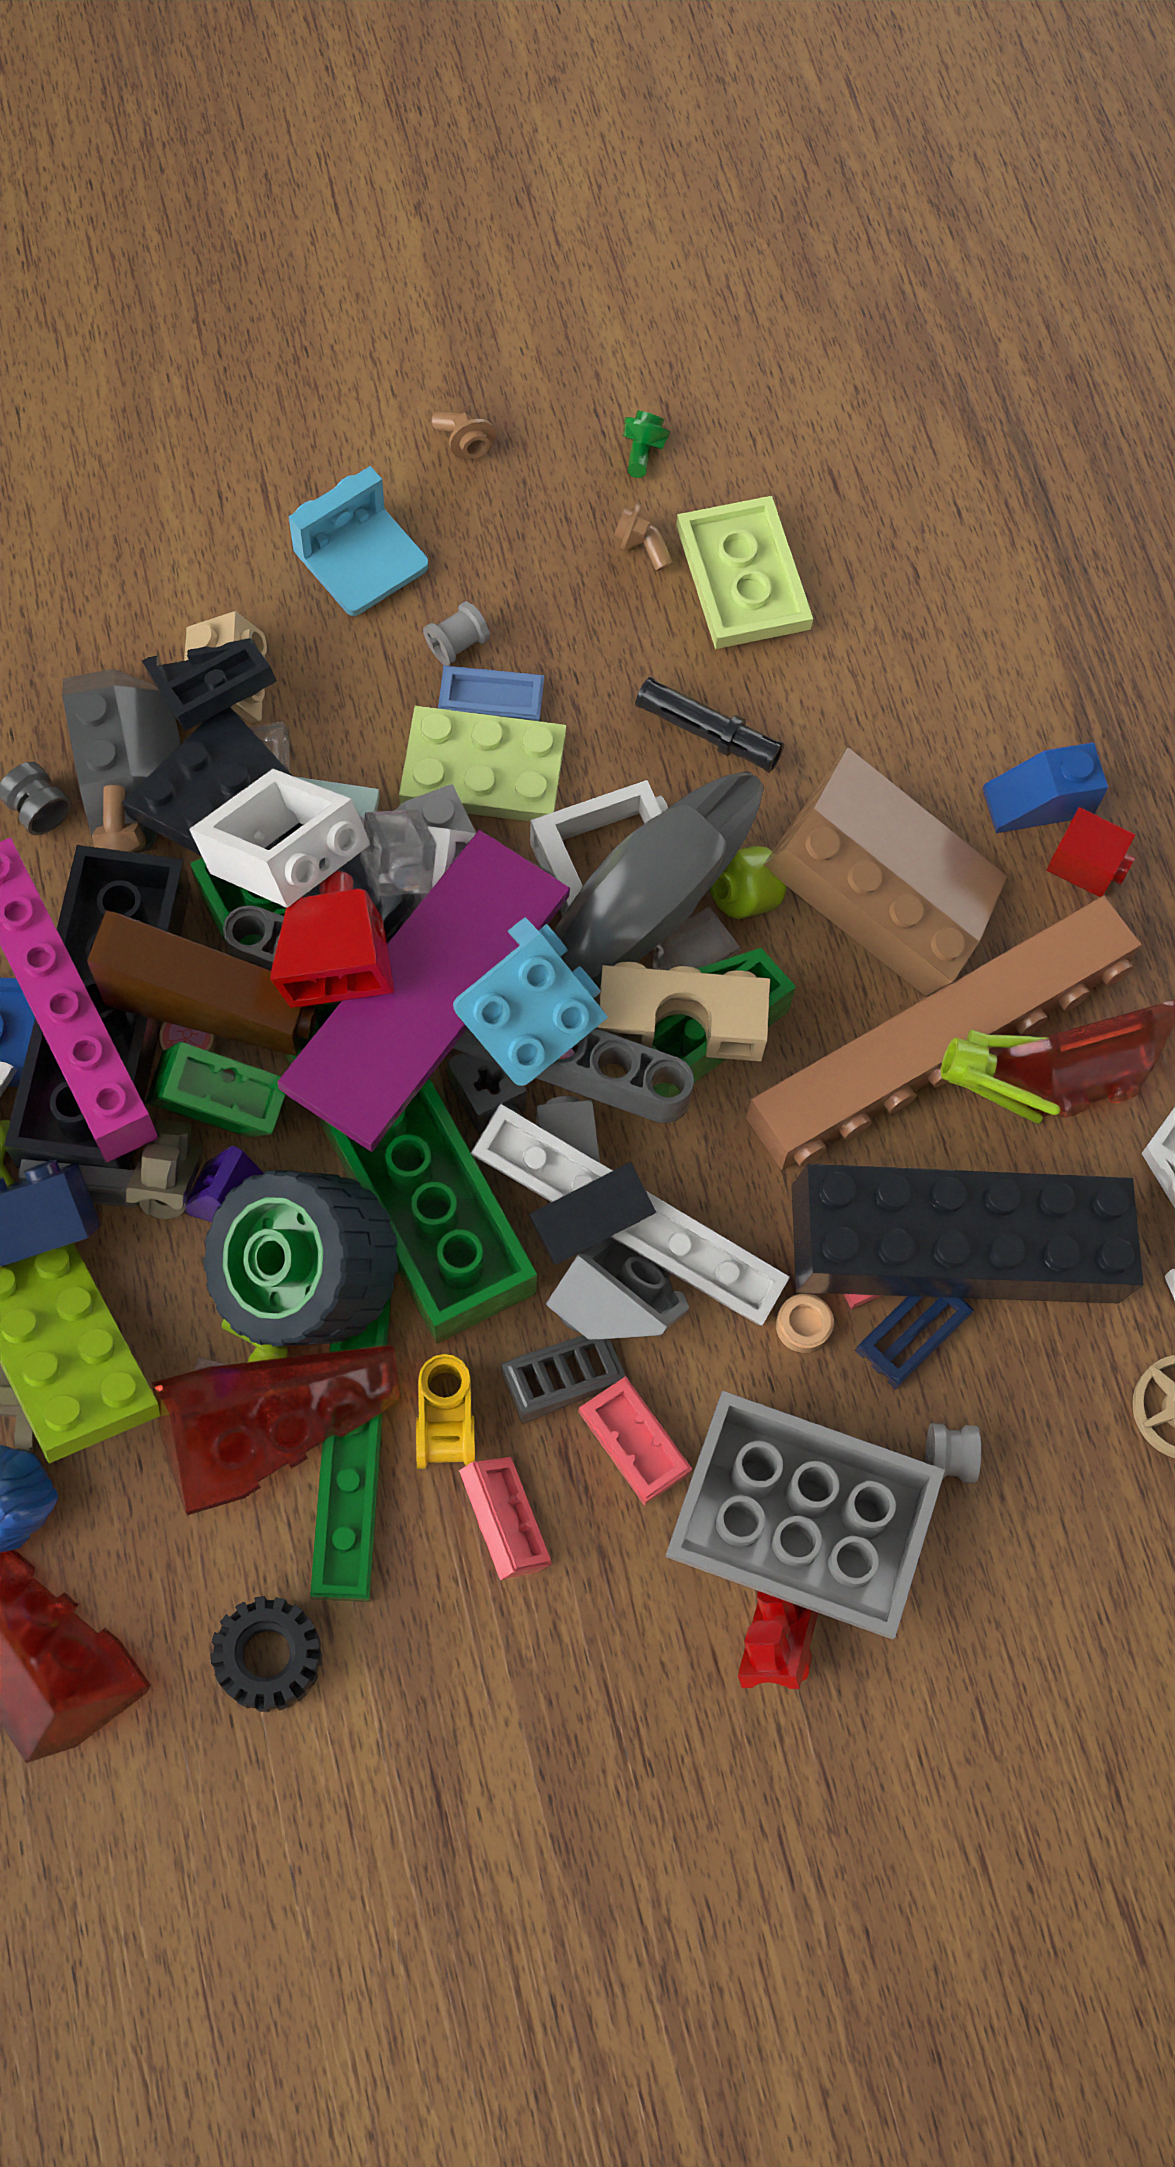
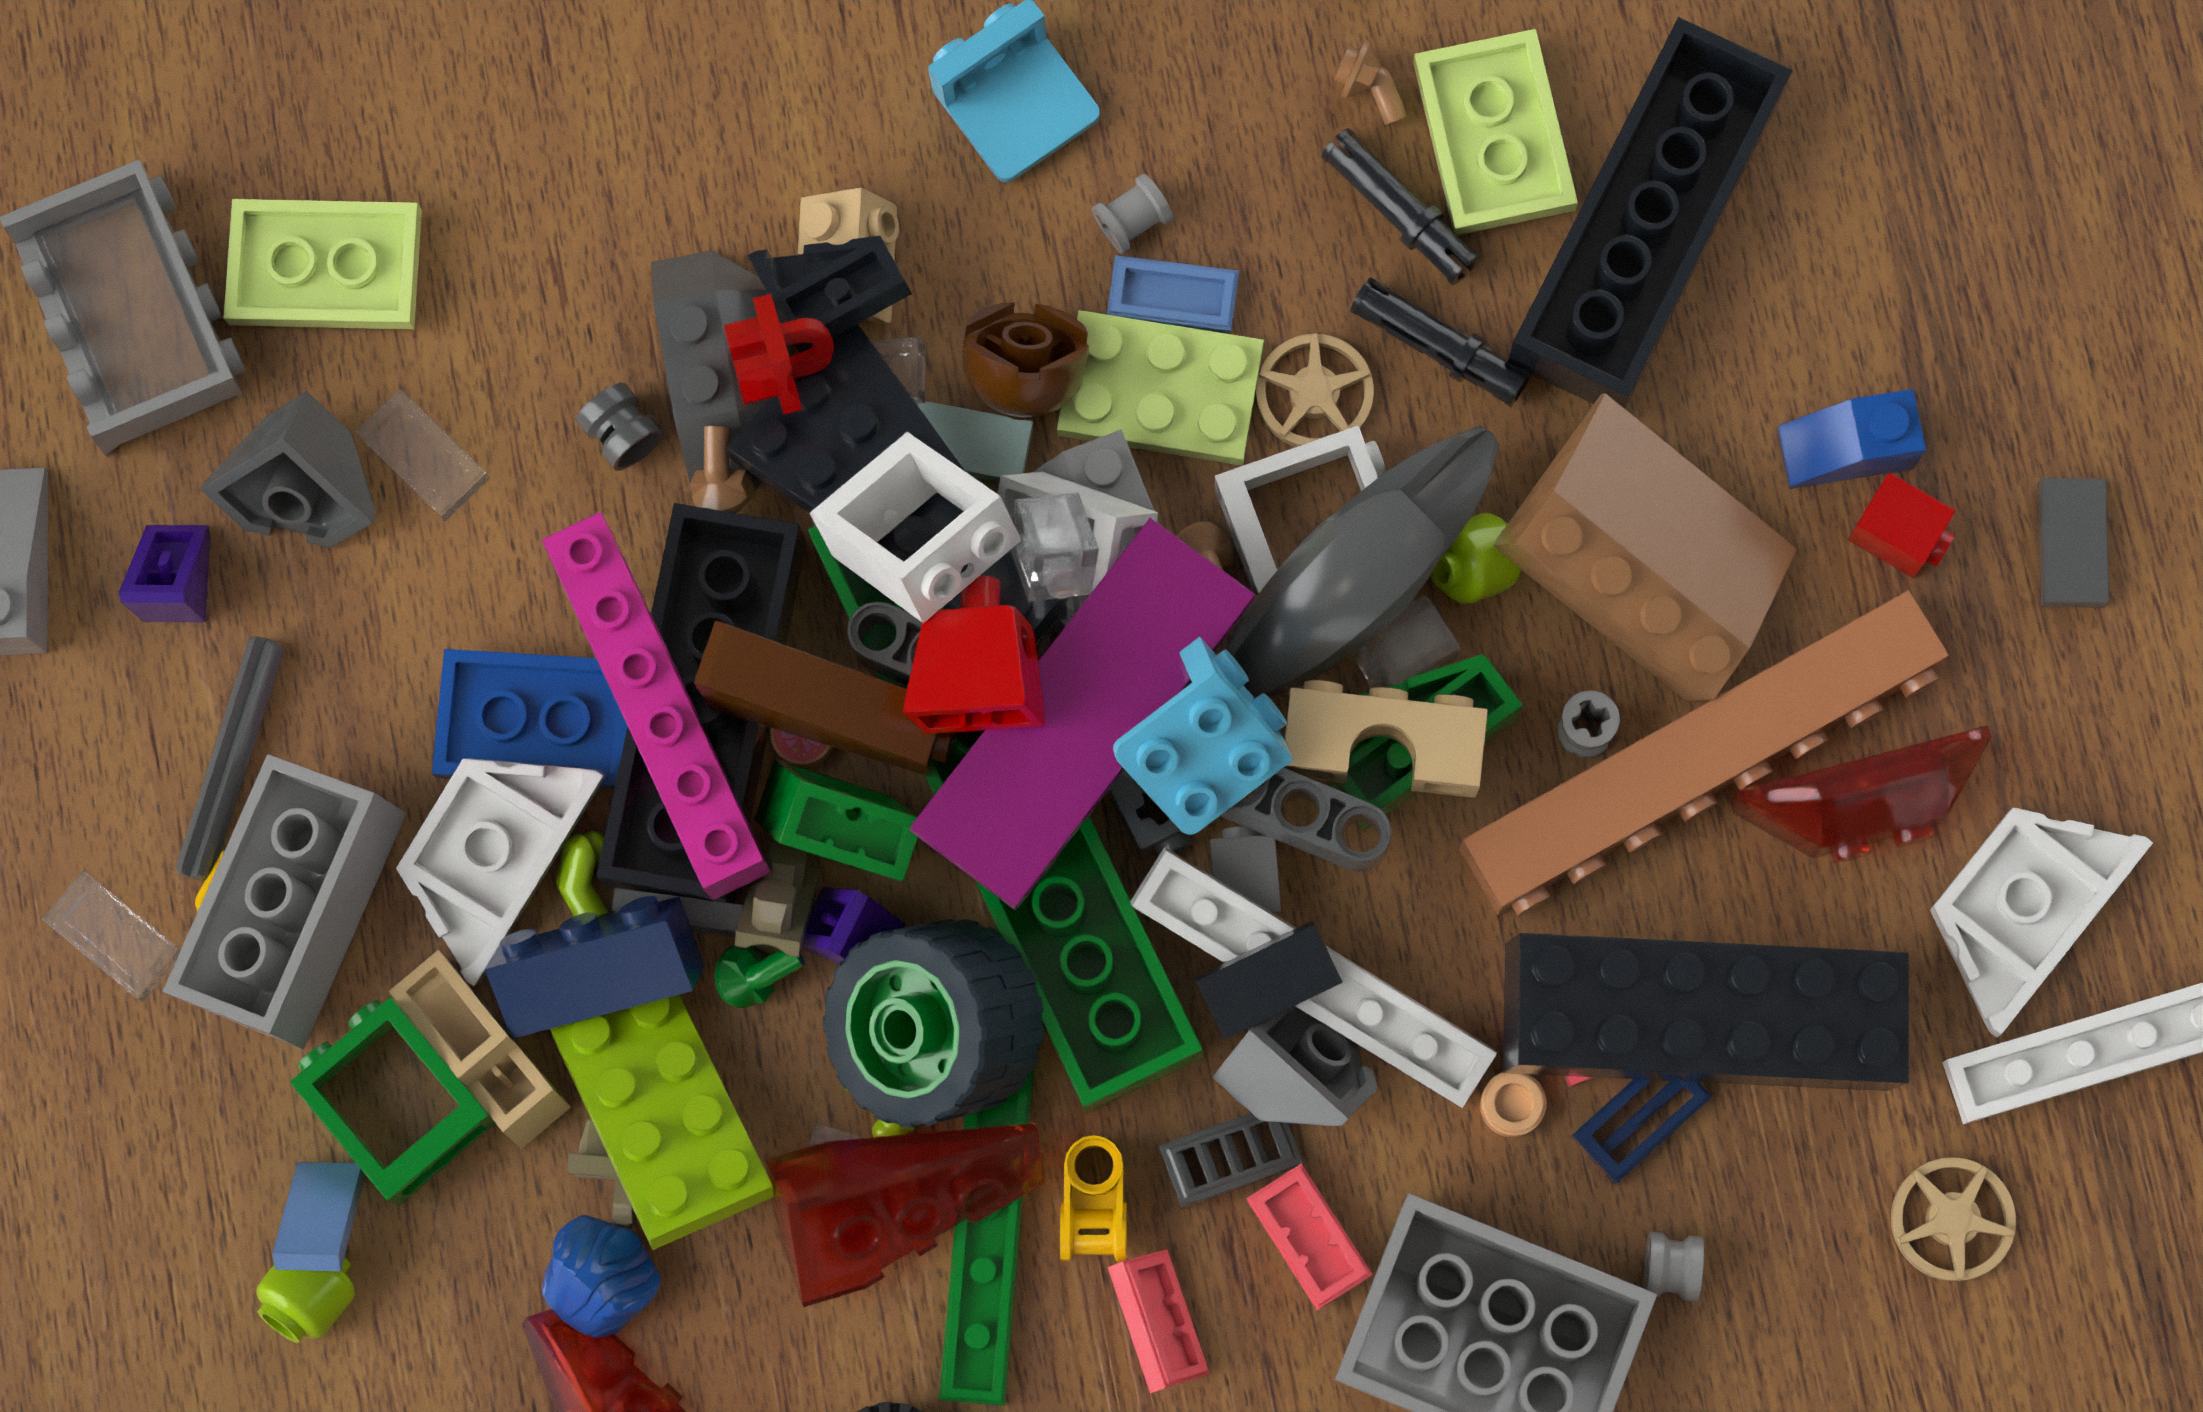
camera: 15 degrees right, 10 degrees up
(137, 1234) = (748, 978): none -> green plate
(151, 724) = (763, 359): none -> red hips
(370, 741) = (1024, 360): none -> reddish brown cylinder
(607, 763) = (1313, 388): none -> tan wheel
(687, 638) = (1419, 224): none -> black pin
(857, 999) = (1597, 707): none -> light grey bush
(870, 624) = (1649, 215): none -> black brick
(973, 1067) = (1729, 810): lime plant -> none

